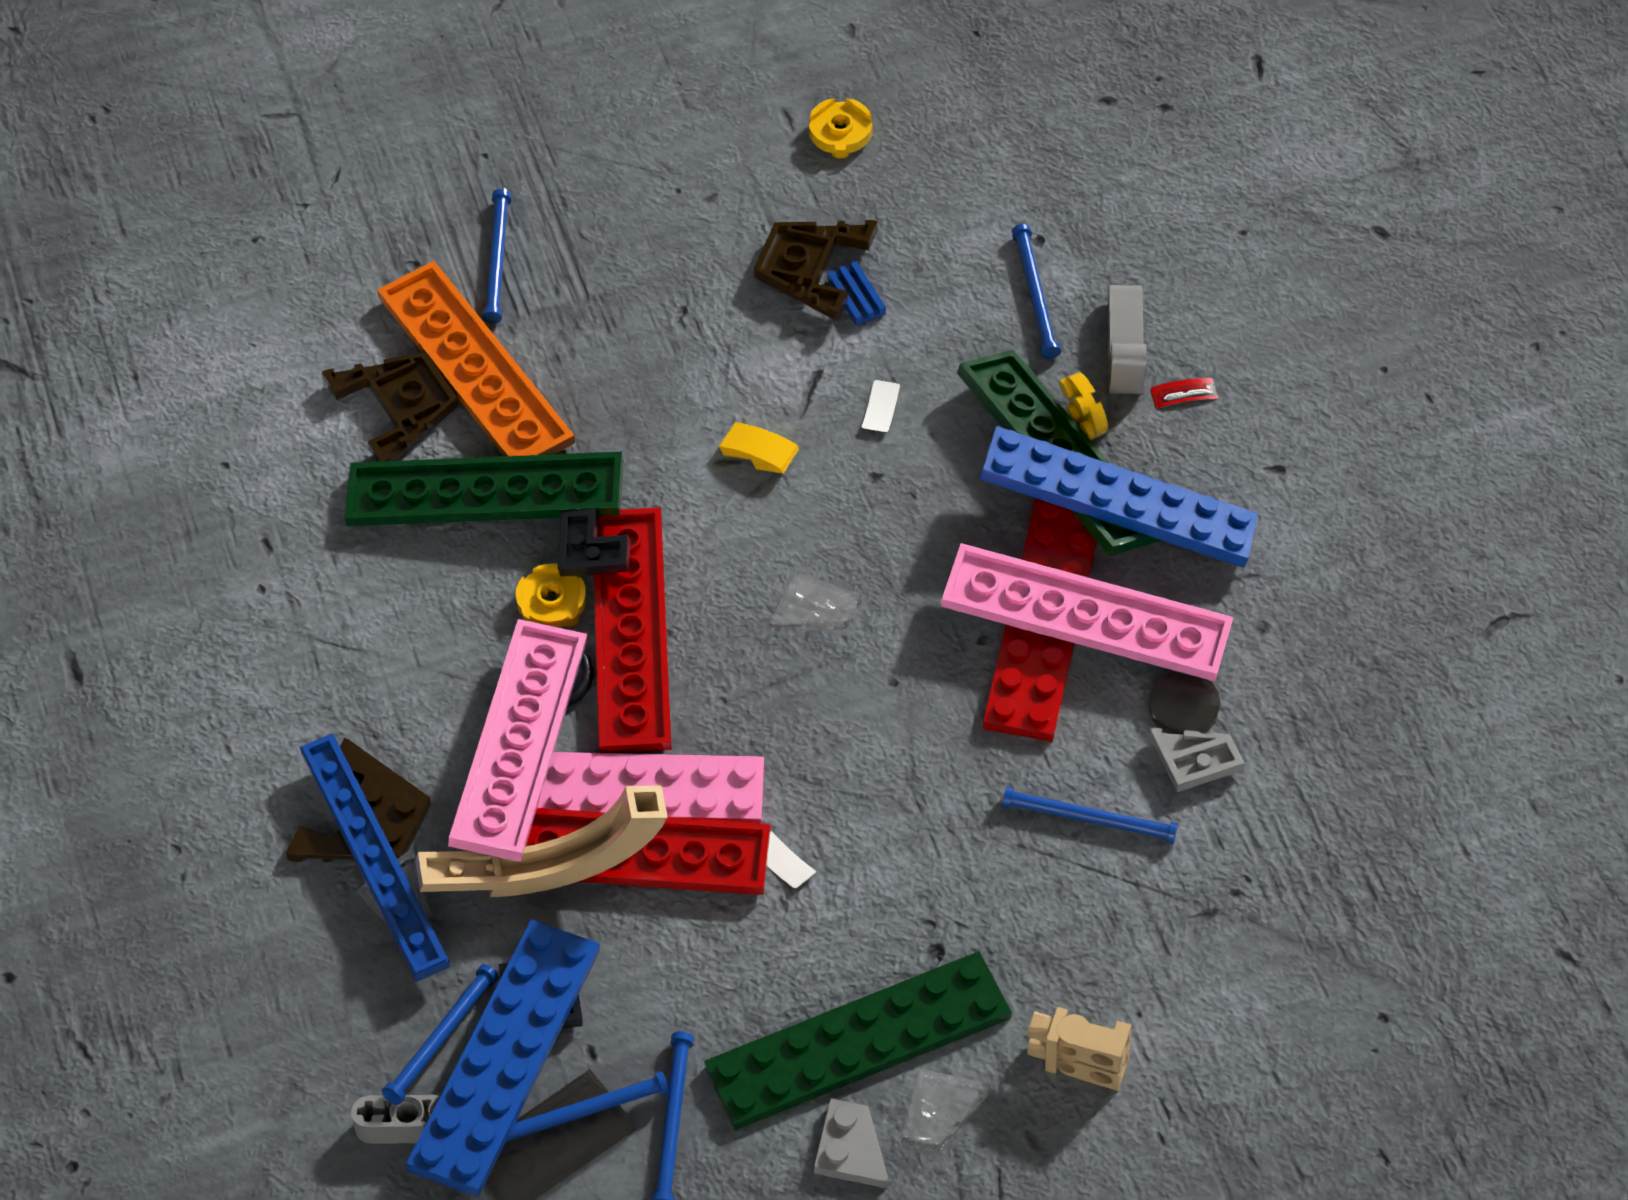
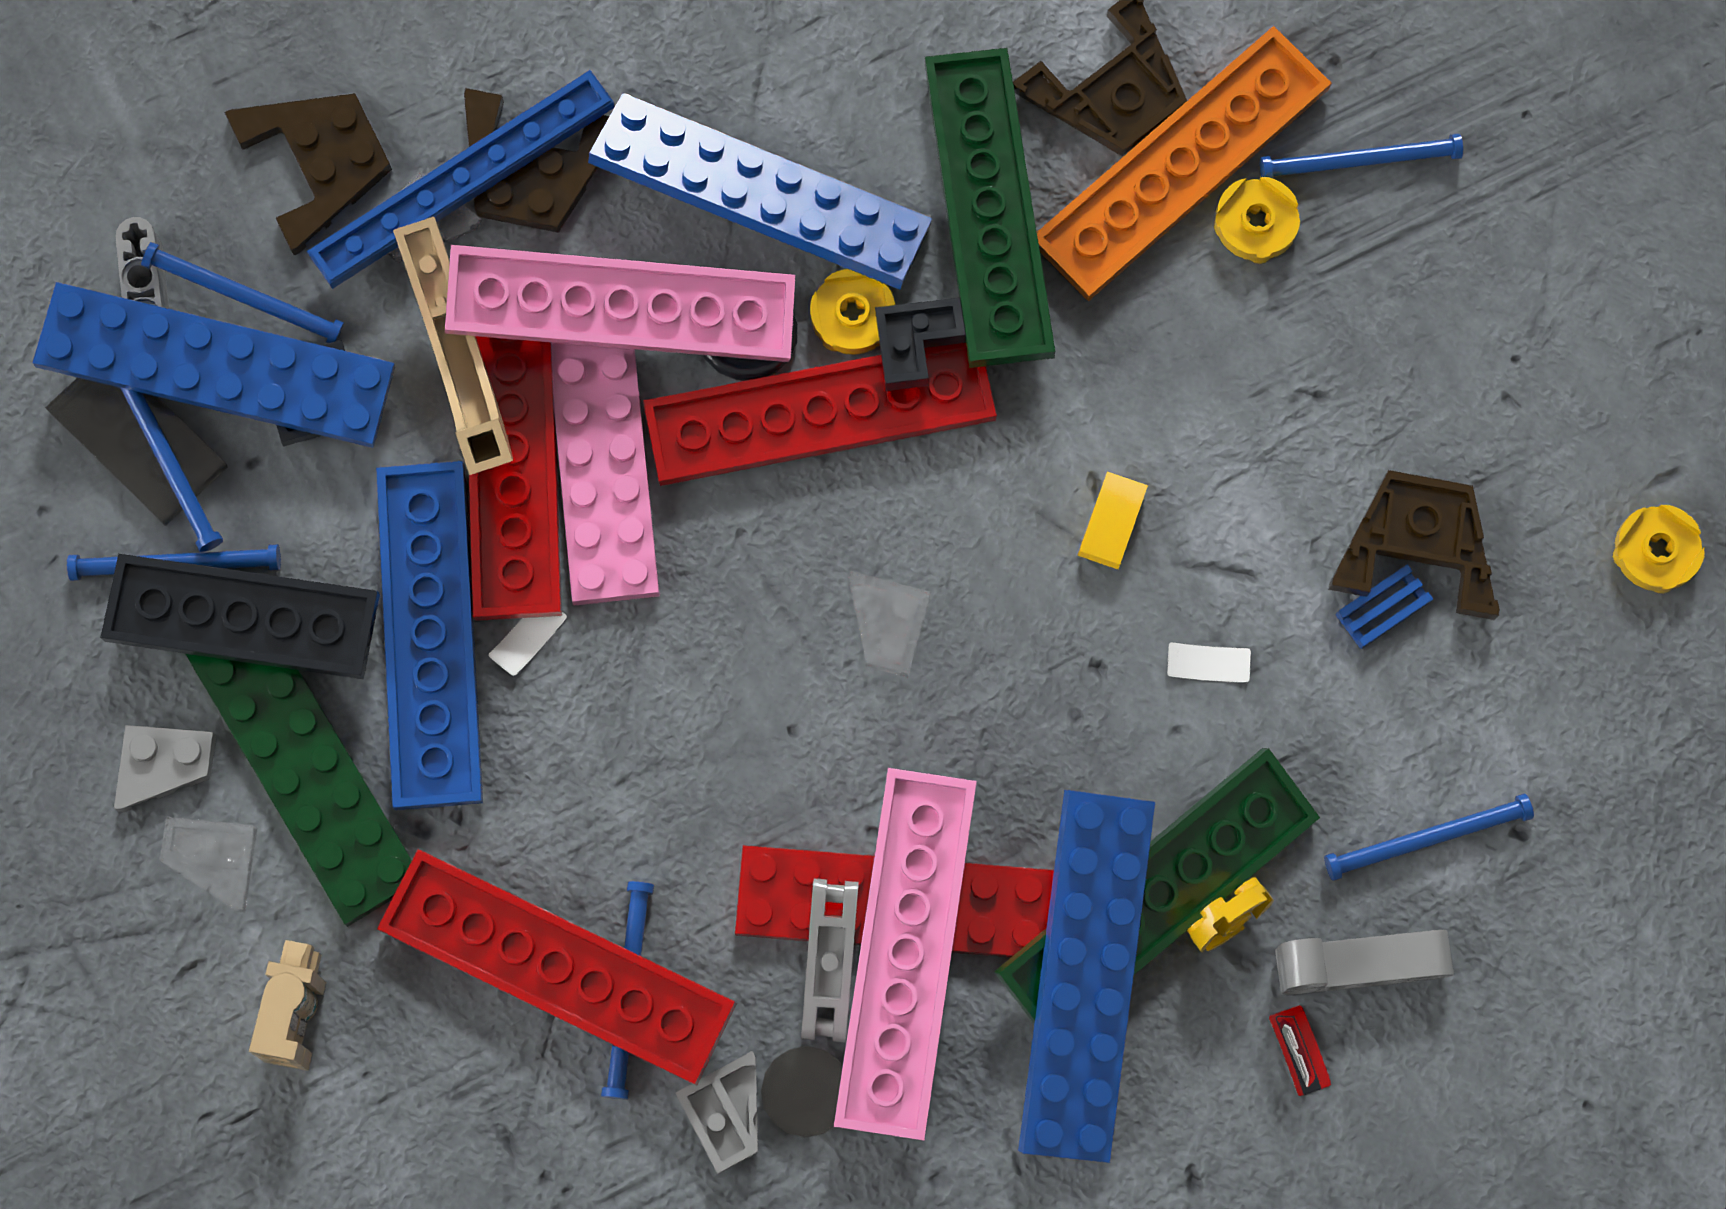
camera: 80 degrees right, 20 degrees up
(316, 964) = (332, 149): none -> dark brown wing
(432, 645) = (760, 191): none -> plate
(536, 340) = (1251, 196): none -> yellow plate
(736, 1055) = (240, 616): none -> black plate
(771, 926) = (429, 636): none -> blue plate
(1066, 856) = (557, 967): none -> red plate
(1085, 665) = (829, 960): none -> light grey plate

